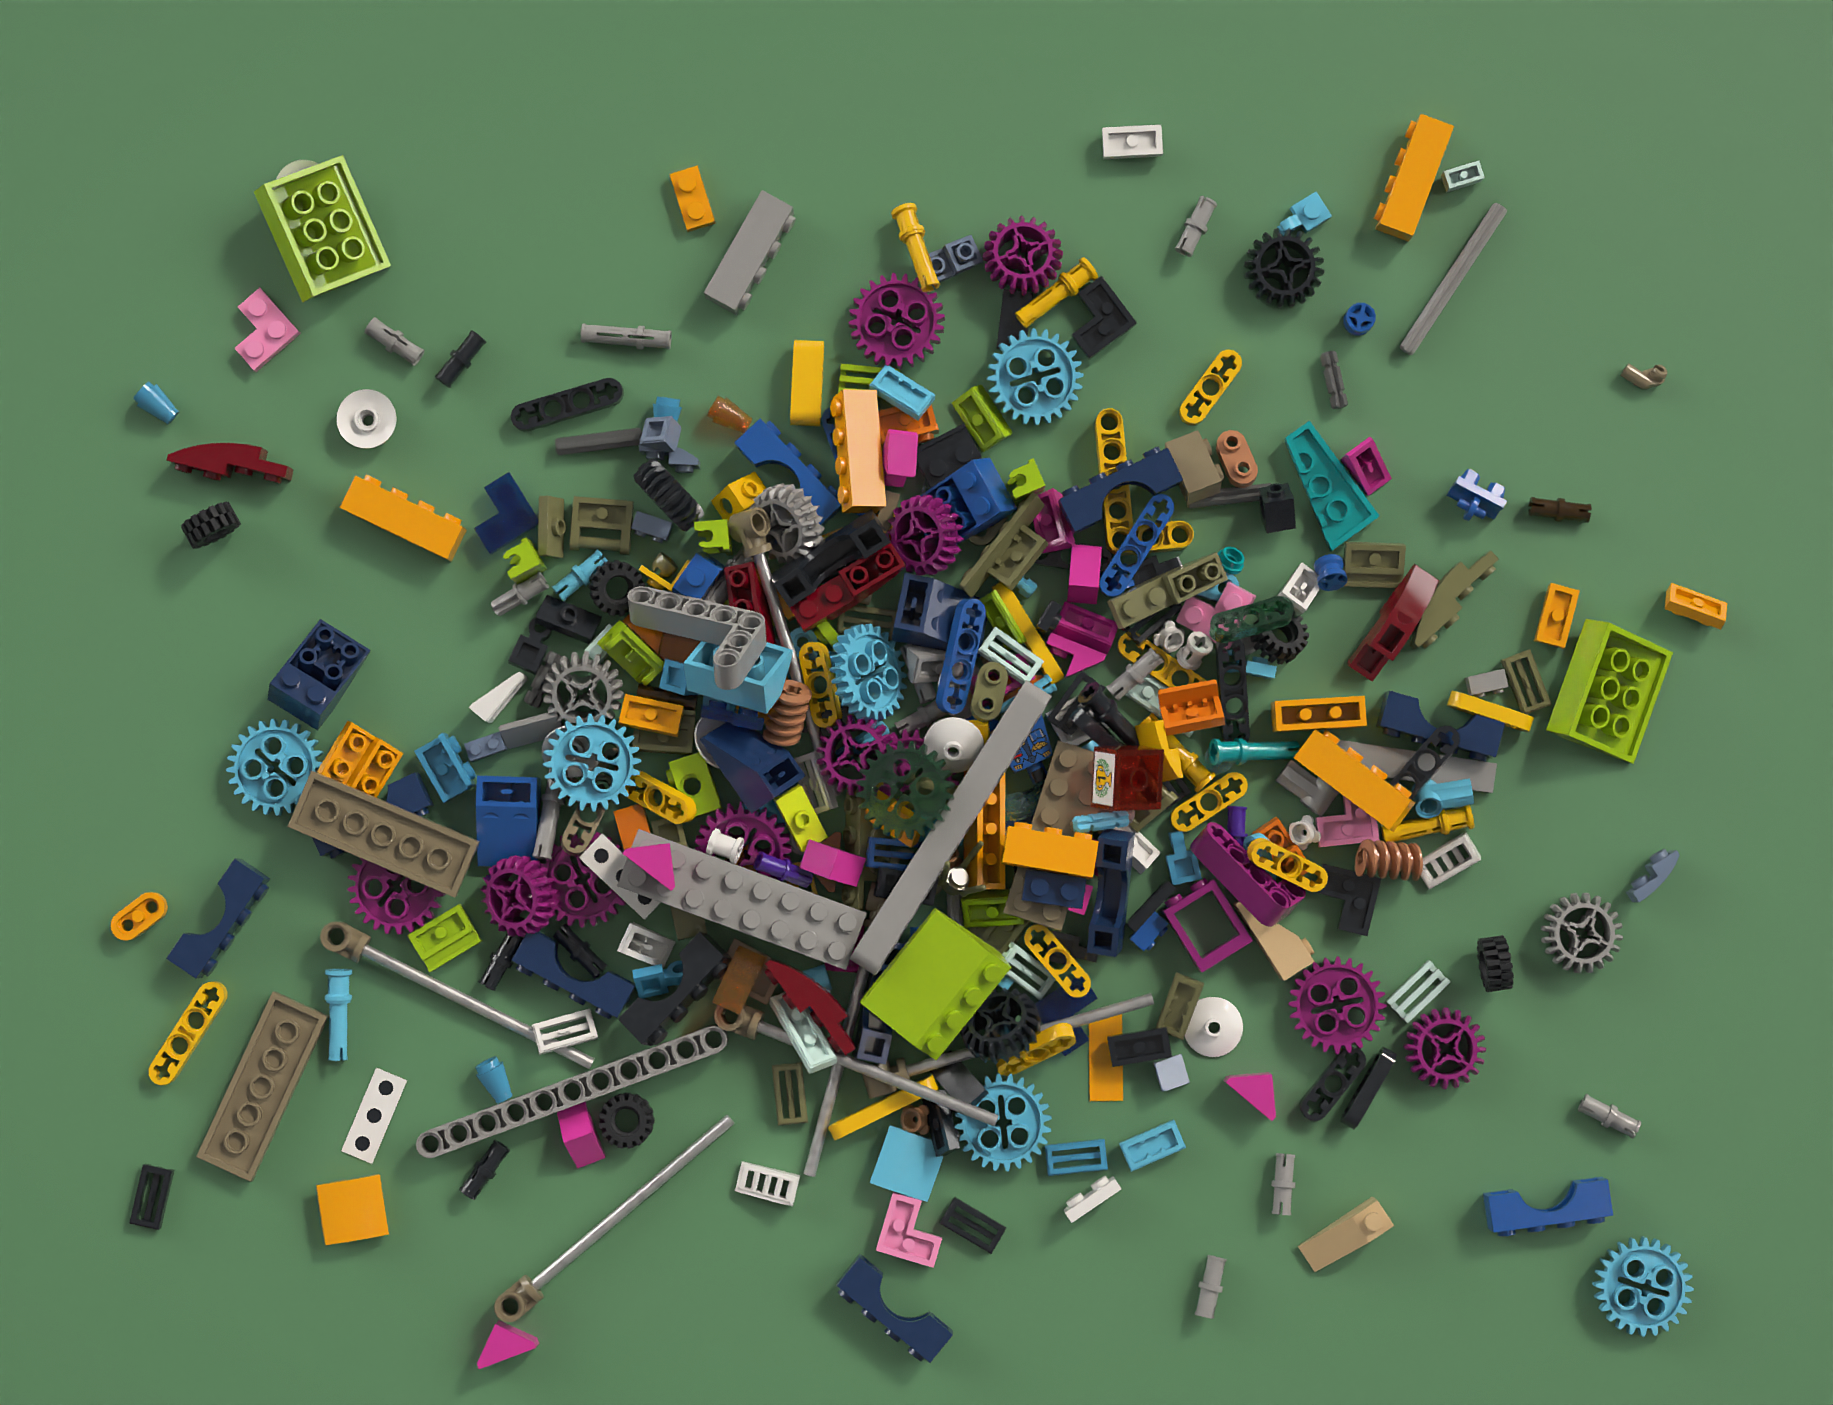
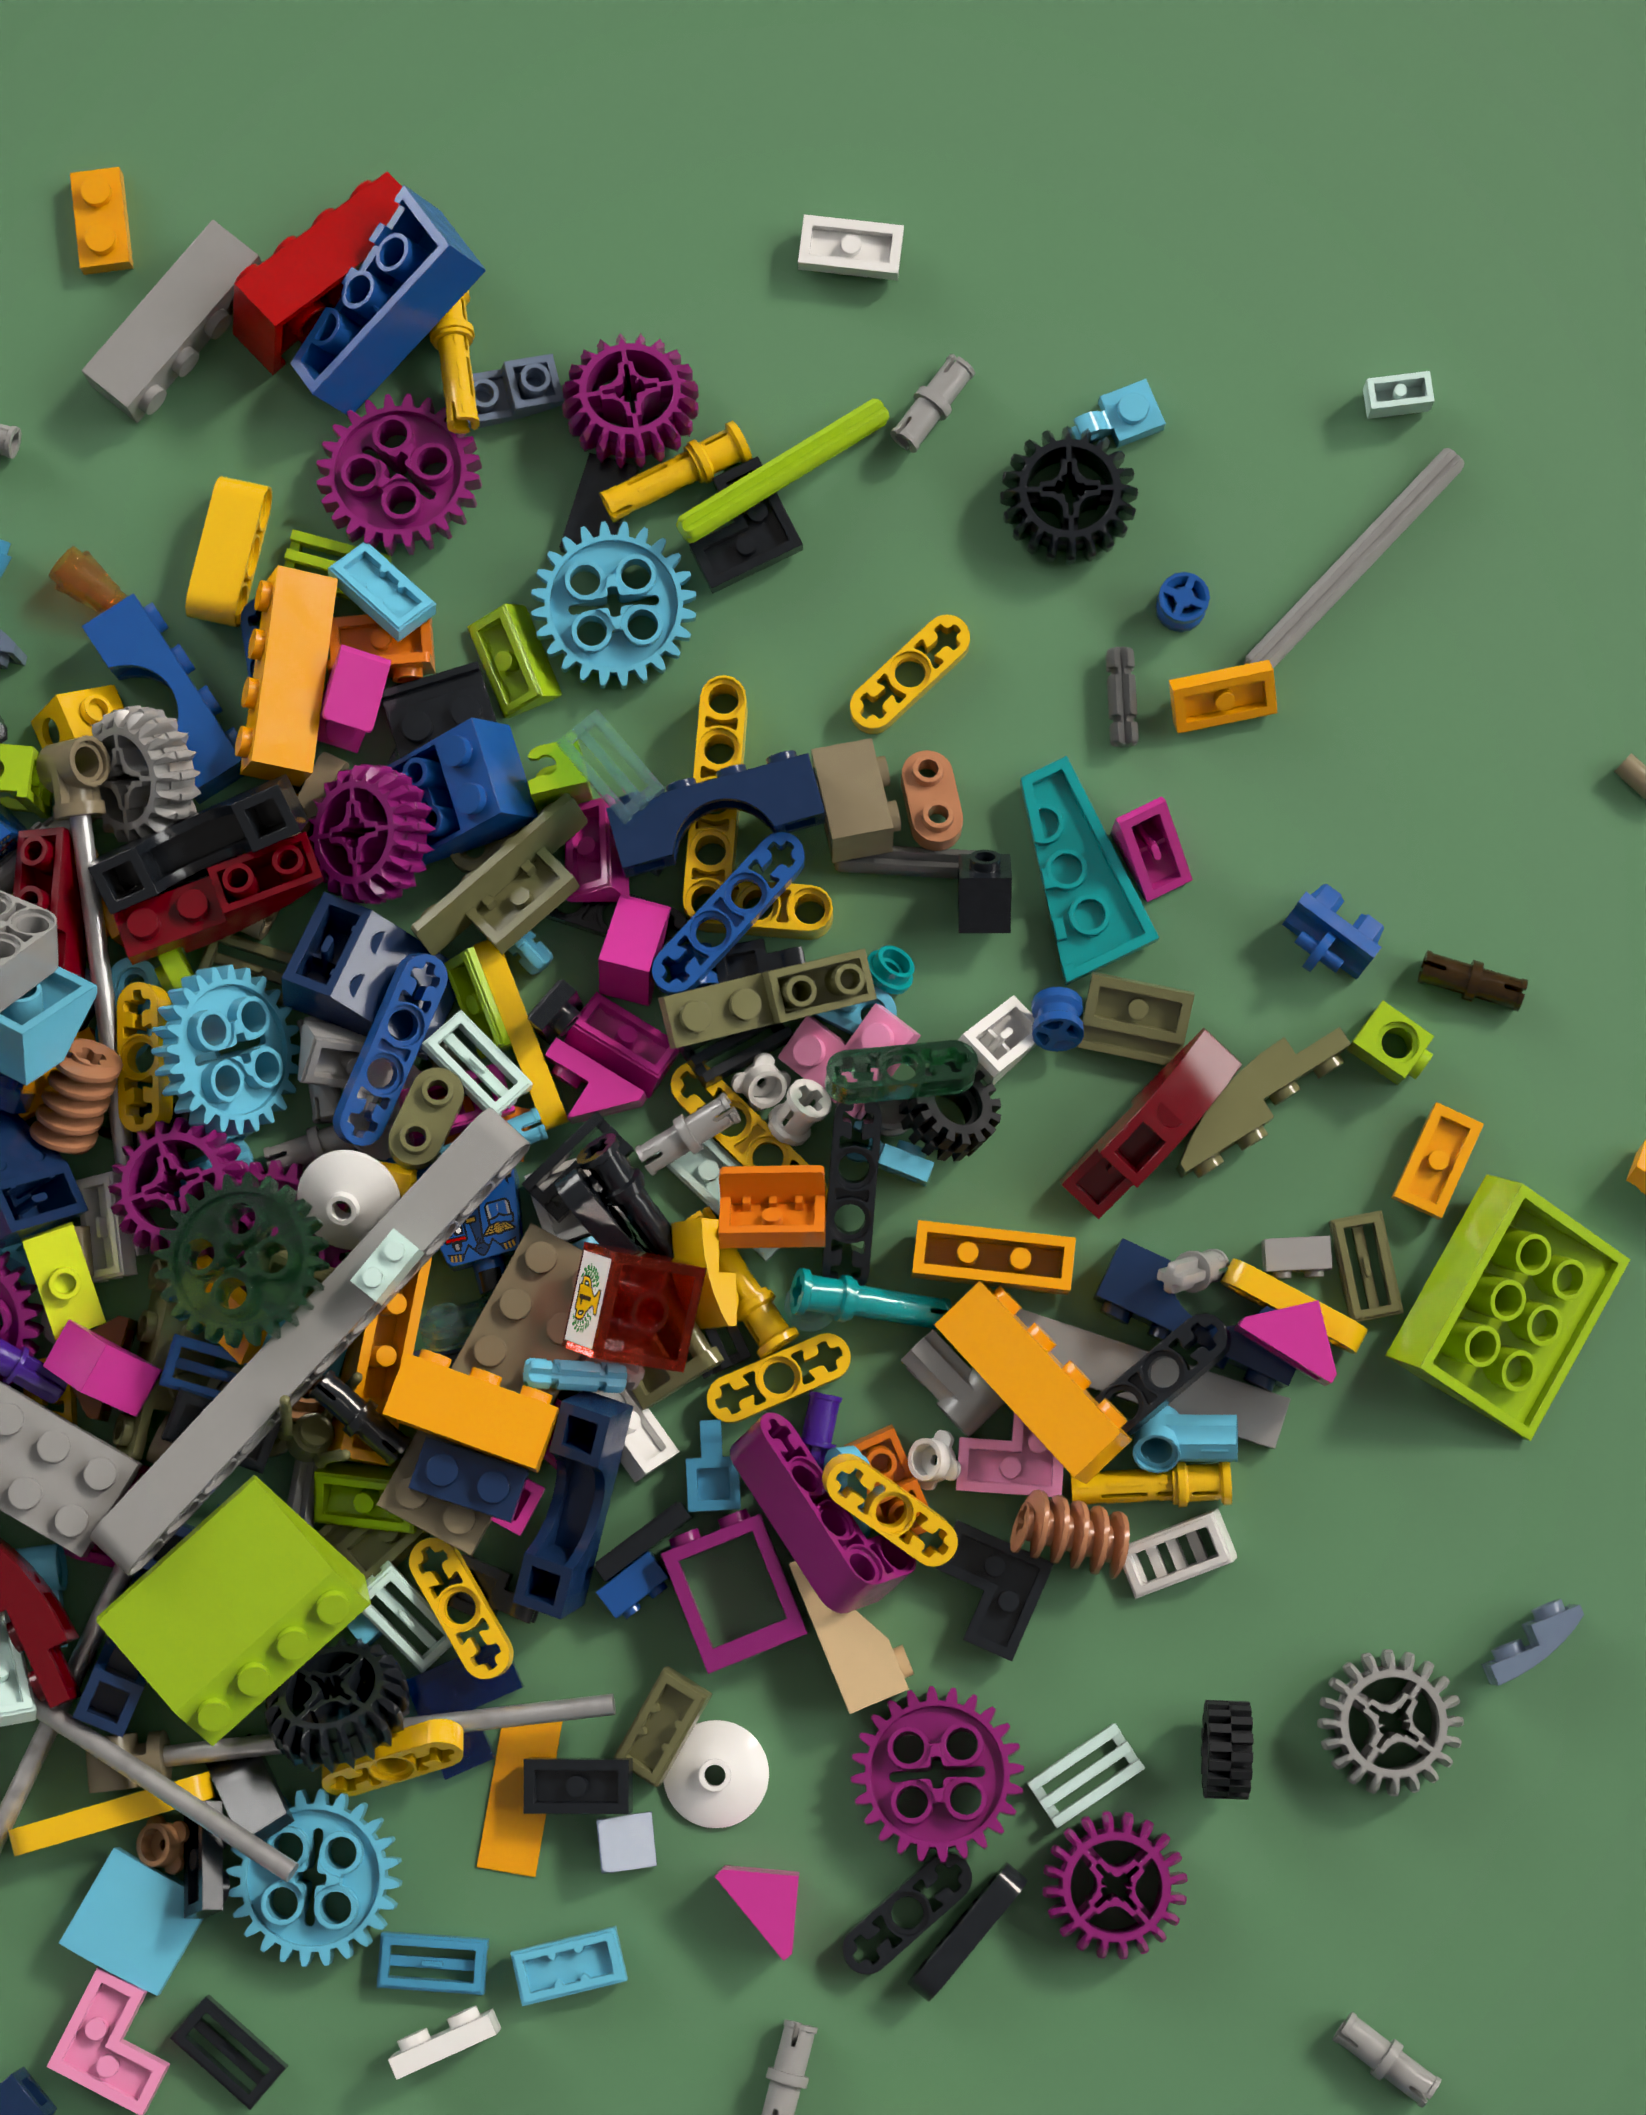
camera: 15 degrees right, 5 degrees down
(831, 206) = (304, 275): none -> red wedge
(875, 224) = (387, 304): none -> blue wedge
(986, 865) = (360, 1417): none -> black pin
(989, 780) = (387, 1266): none -> light aqua piece
(1052, 485) = (638, 800): none -> clear light blue tile
(1118, 282) = (782, 470): none -> lime axle
(1392, 370) = (1223, 696): none -> light orange plate
(1414, 177) = (1315, 382): light orange brick -> none
(1432, 702) = (1193, 1271): none -> light grey axle
(1497, 730) = (1296, 1337): none -> dark pink slope
(1508, 557) = (1369, 1049): none -> lime brick

